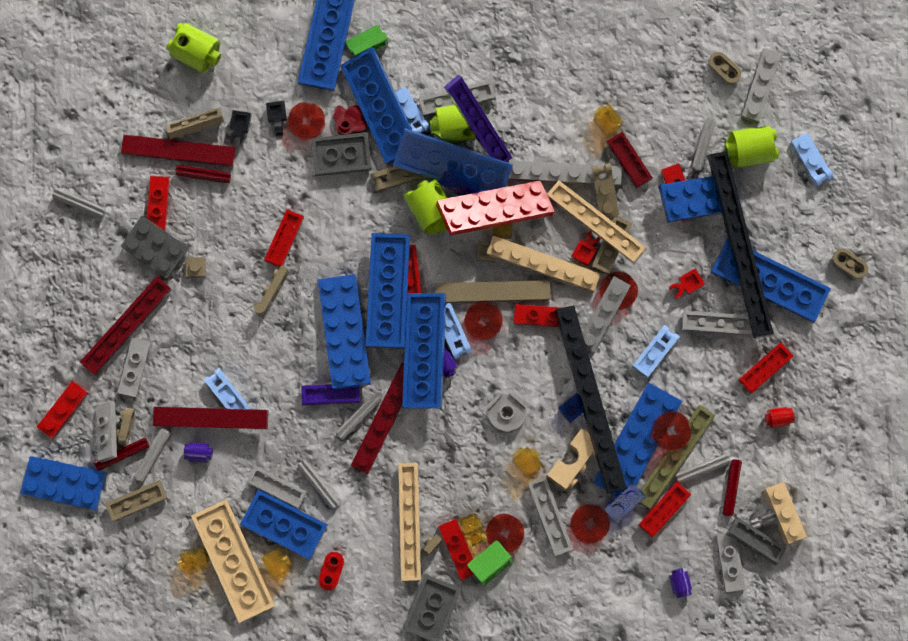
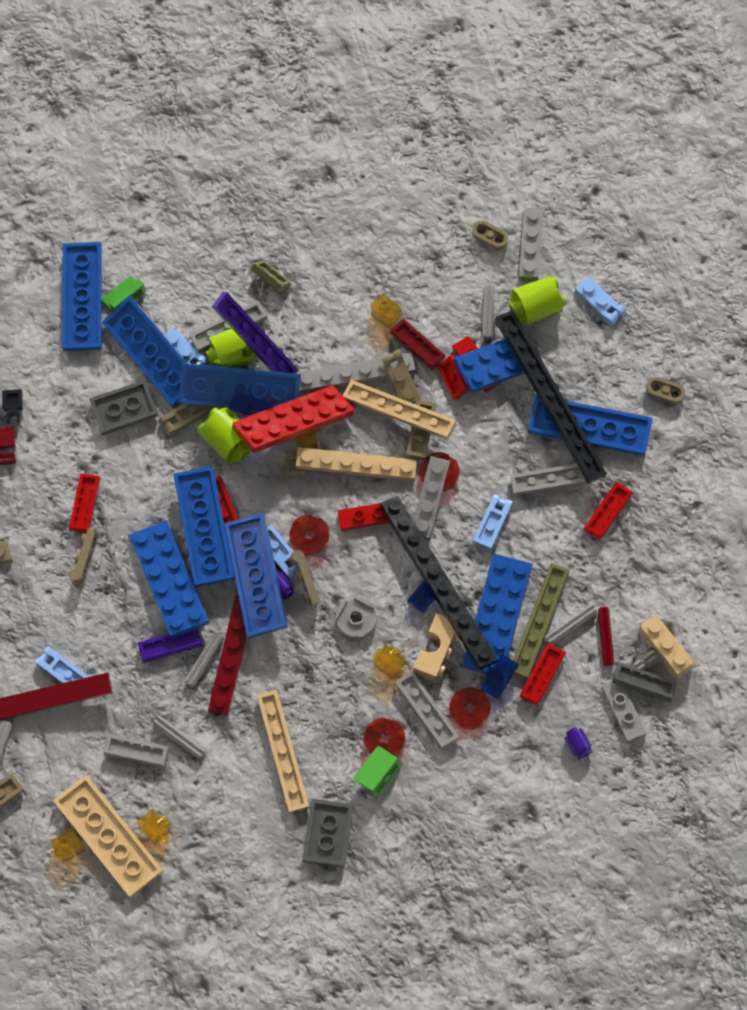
camera: 10 degrees left, 10 degrees down
(198, 452) = (45, 735): dark purple brick -> none
(276, 113) = (48, 384): black plate -> none
(284, 524) = (152, 786): blue plate -> none
(308, 110) = (82, 394): clear red plate -> none
(332, 571) = (214, 820): red plate -> none
(350, 118) = (123, 373): dark red plate -> none
(431, 544) = (311, 767): dark tan plate -> none
(457, 547) = (339, 766): red plate -> none
(468, 363) = (303, 576): none -> dark tan plate
(472, 530) = (350, 742): clear yellow brick -> none
(495, 291) = (315, 502): dark tan tile -> none
(508, 58) = (271, 276): none -> olive plate
(585, 251) = (396, 441): red plate -> none
(653, 202) = (452, 378): none -> red plate
(661, 435) = (538, 587): clear red plate -> none
(688, 282) = (508, 447): red plate -> none
(779, 417) = (635, 555): red brick -> none

